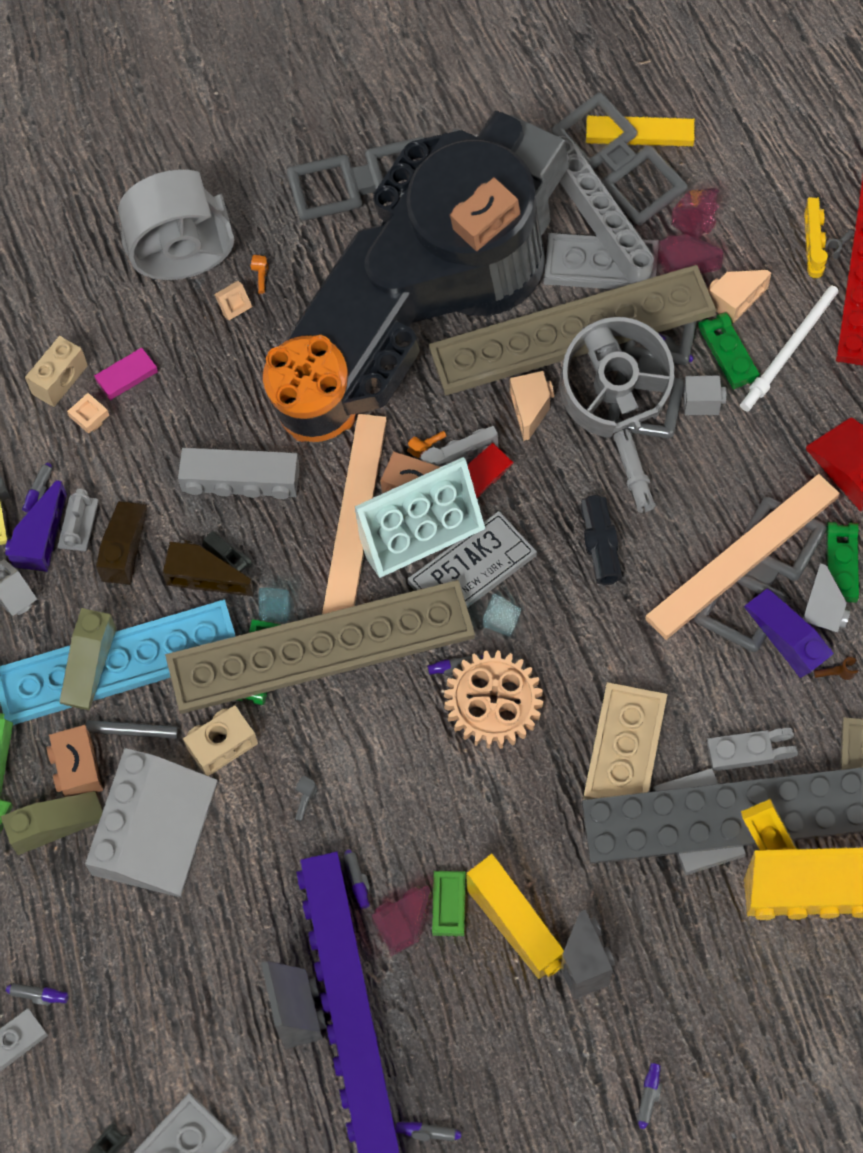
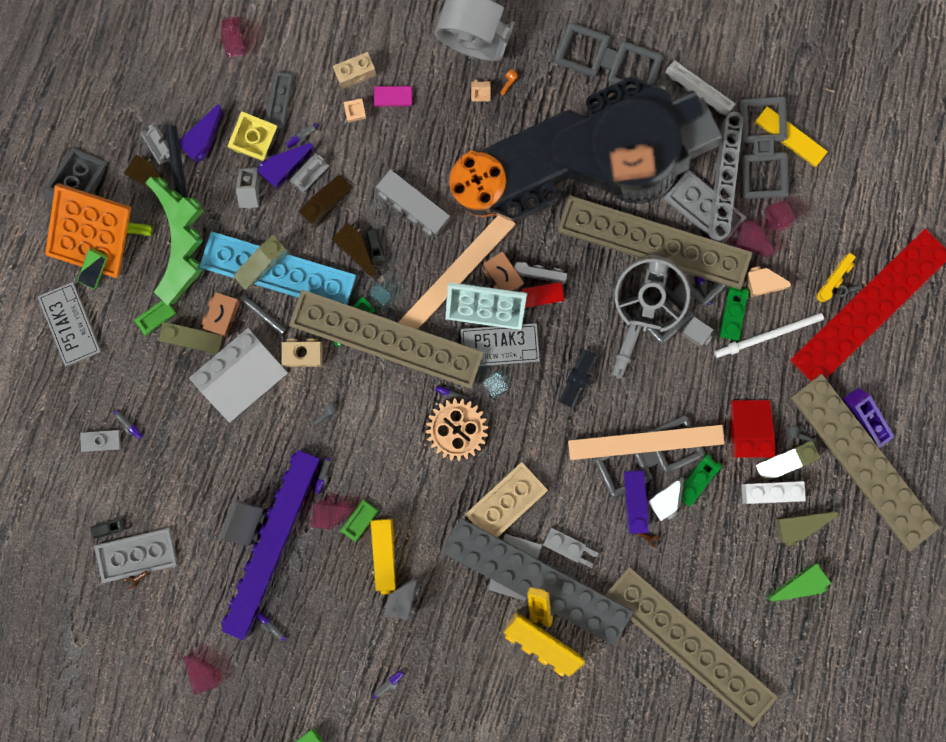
camera: 35 degrees right, 20 degrees up
(418, 446) = (520, 254): orange hand -> none
(530, 400) = (601, 269): light nougat slope -> none

